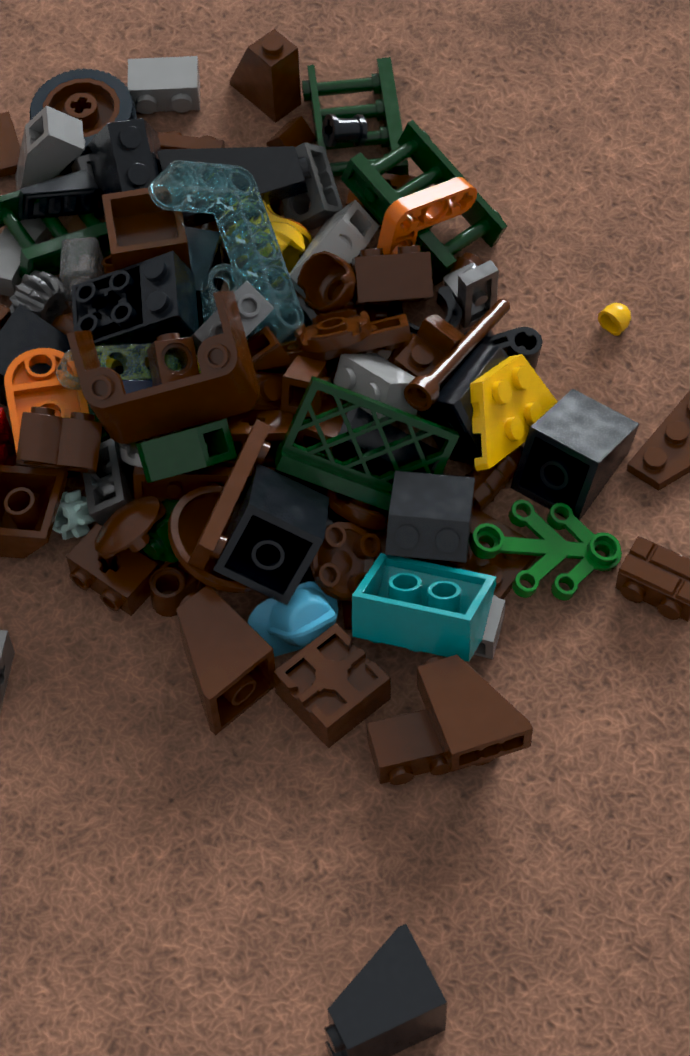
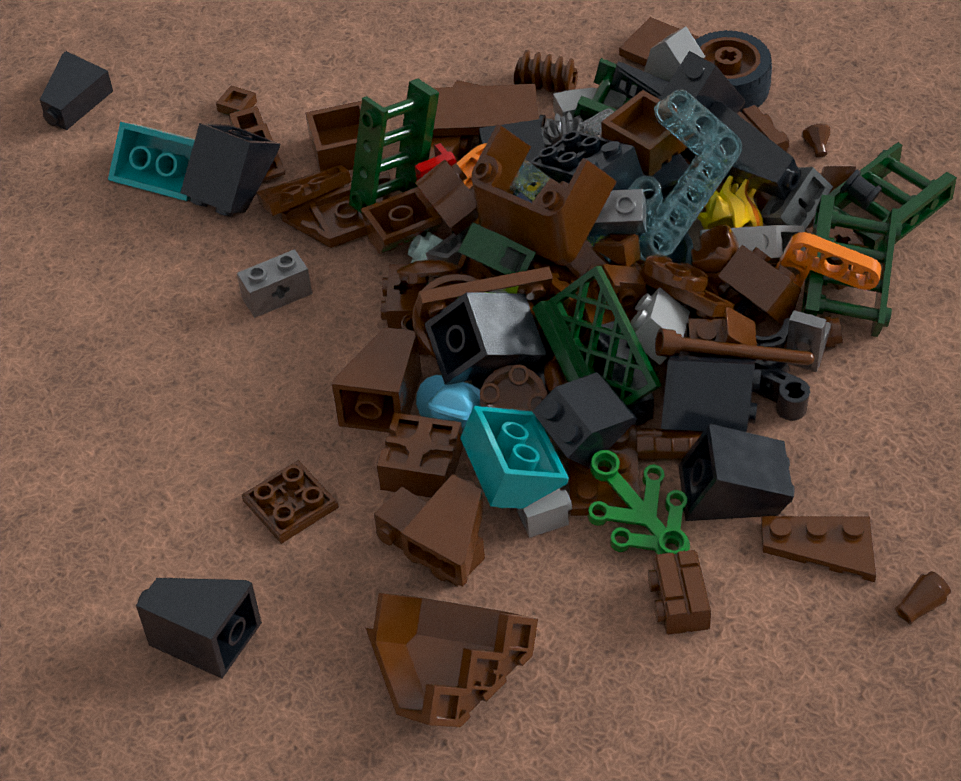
camera: 55 degrees right, 10 degrees down
(164, 84) = (805, 90): light grey brick -> none
(229, 119) = (817, 138): none -> reddish brown rock
(270, 75) = (865, 128): reddish brown slope -> none
(277, 837) = (290, 501): none -> reddish brown tile
(505, 407) = (716, 398): yellow wing -> none
(591, 811) = (446, 655): none -> reddish brown panel
(615, 318) = (882, 436): yellow hinge -> none

